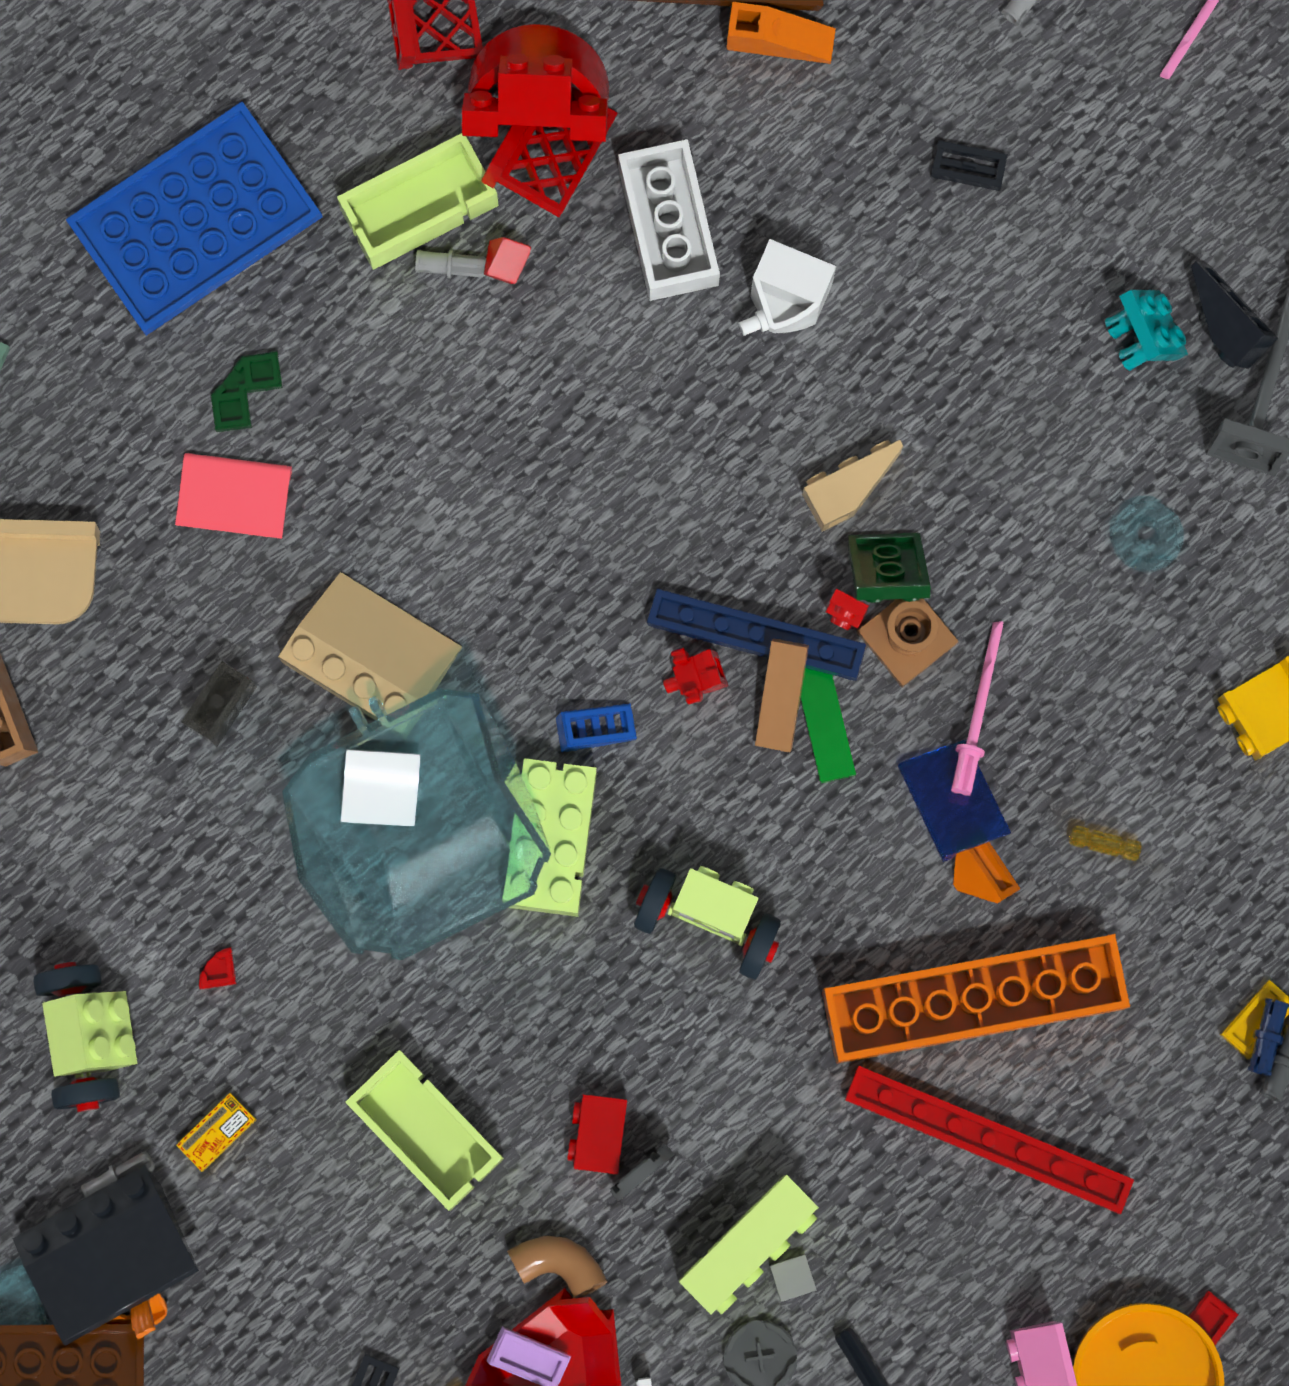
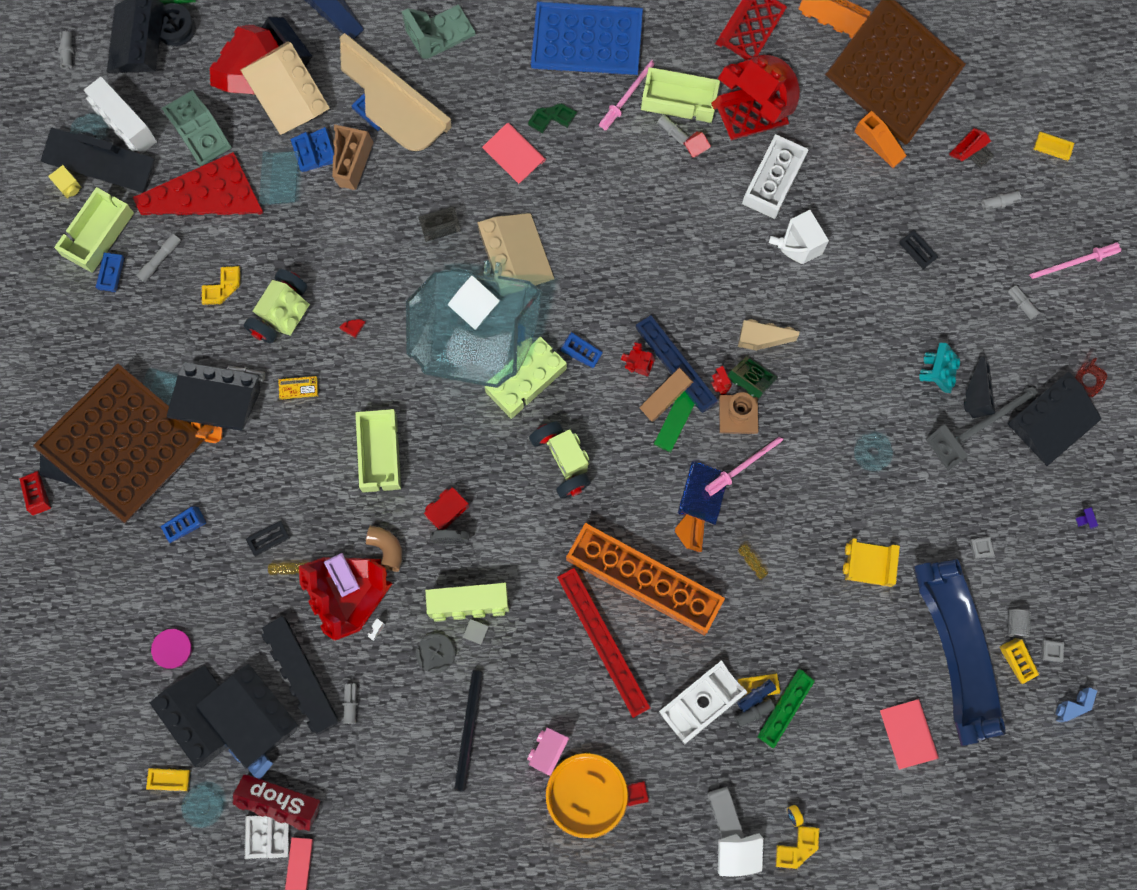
camera: 40 degrees right, 5 degrees down
(335, 306) = (614, 111): none -> bright pink piece
(1185, 128) = (1023, 302): none -> light grey axle
(1193, 1148) = (688, 717): none -> white piece

